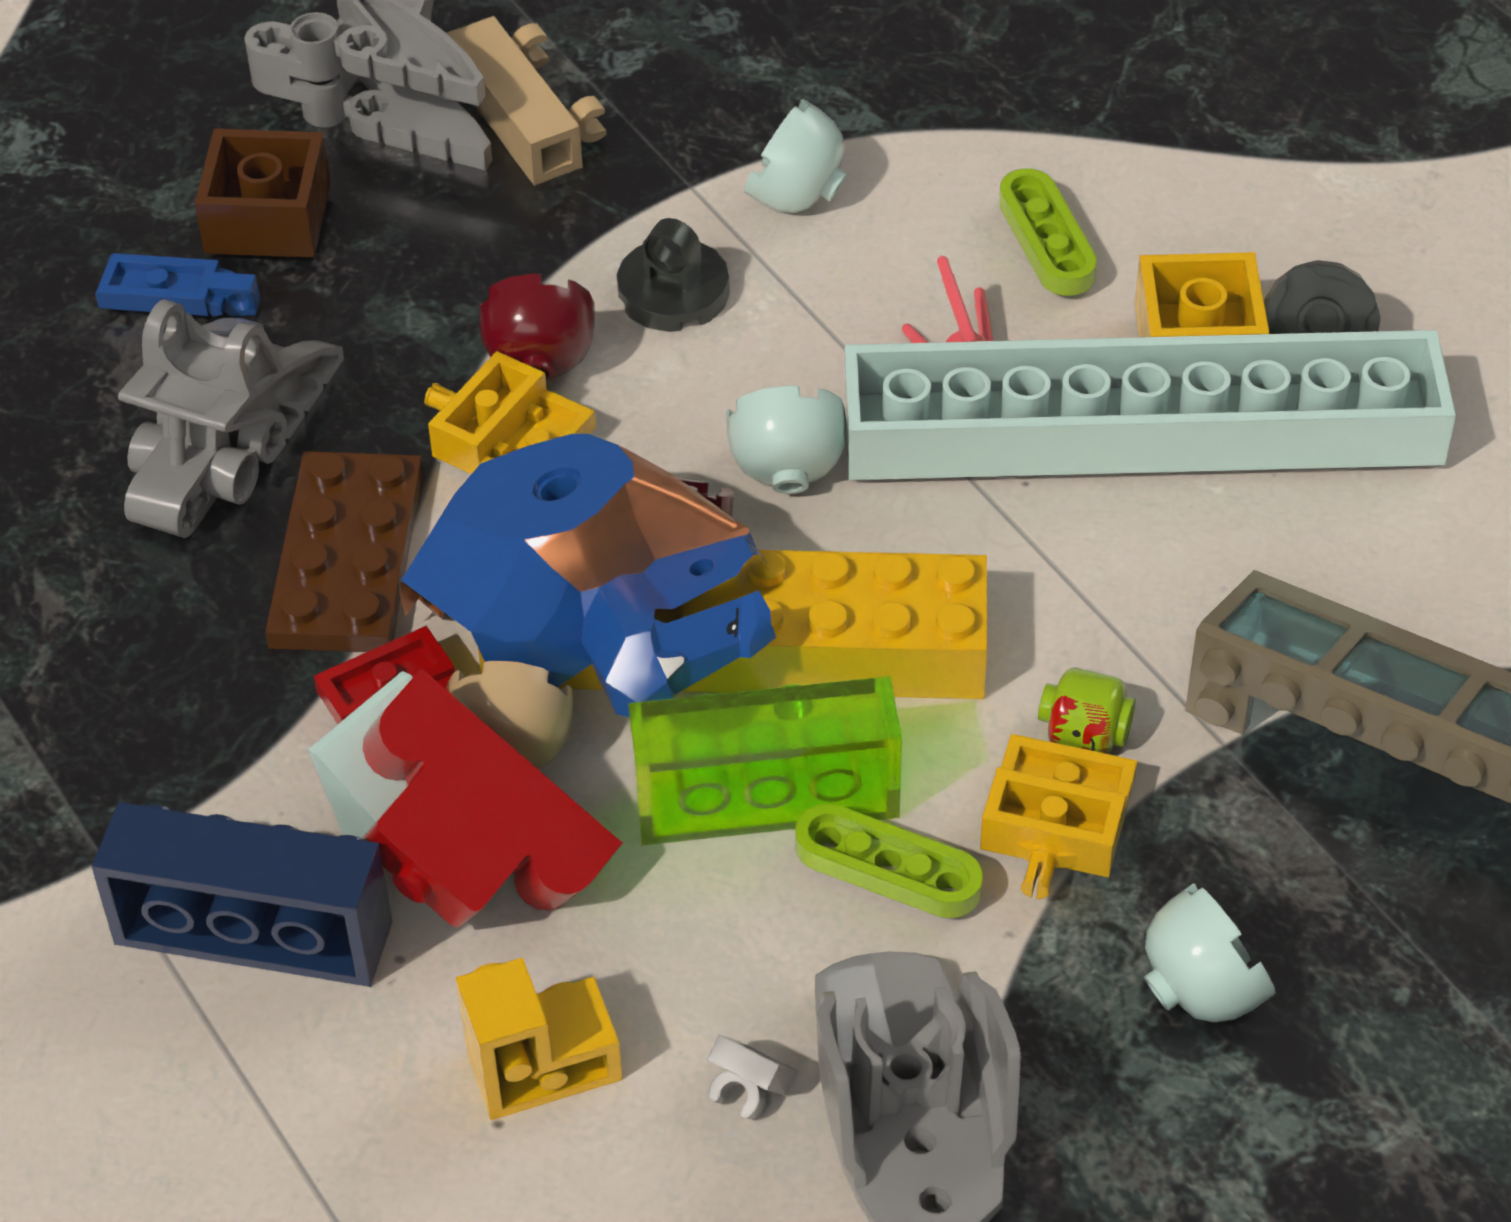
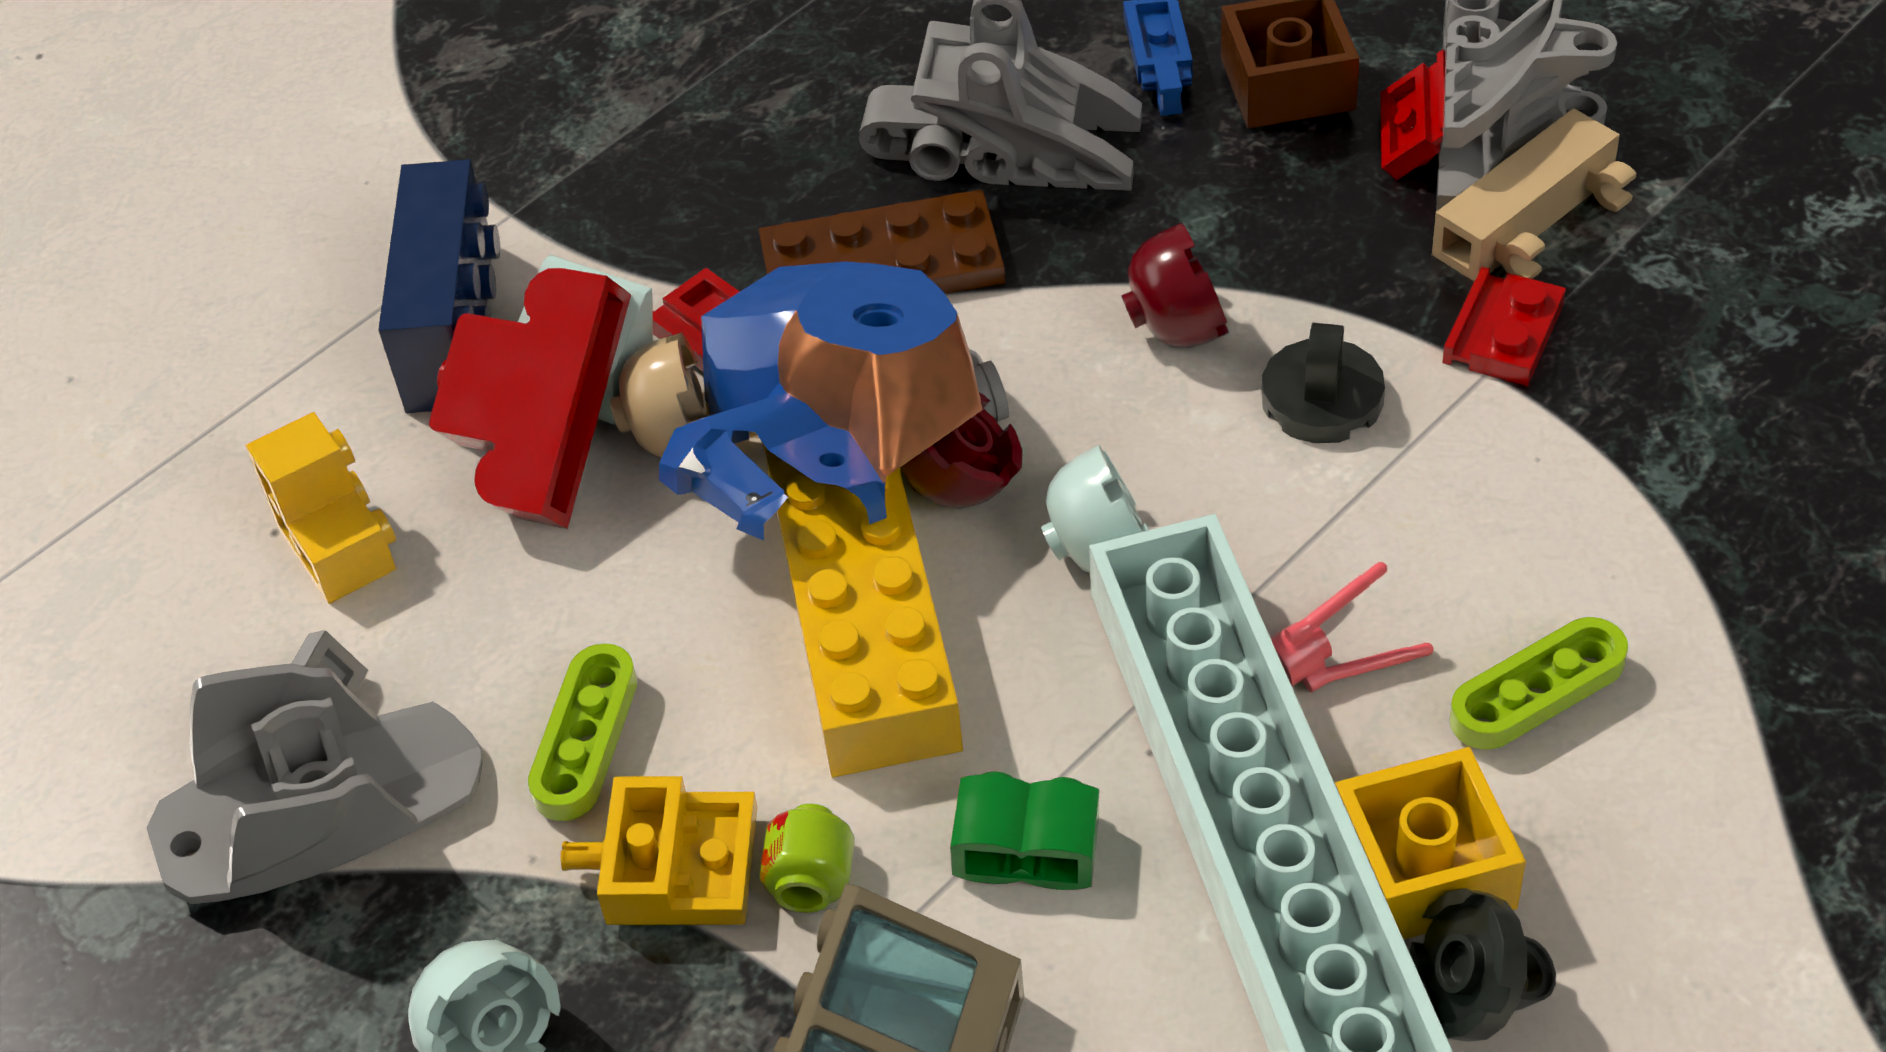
camera: 80 degrees right, 0 degrees up
(383, 132) = (1413, 118): none -> red plate
(499, 413) = (1056, 312): yellow plate -> none
(649, 159) = (1504, 326): none -> red plate
(764, 758) = (654, 592): clear neon green brick -> none
(800, 162) = (1526, 428): light aqua cylinder -> none
(1102, 560) = (1025, 831): none -> green brick

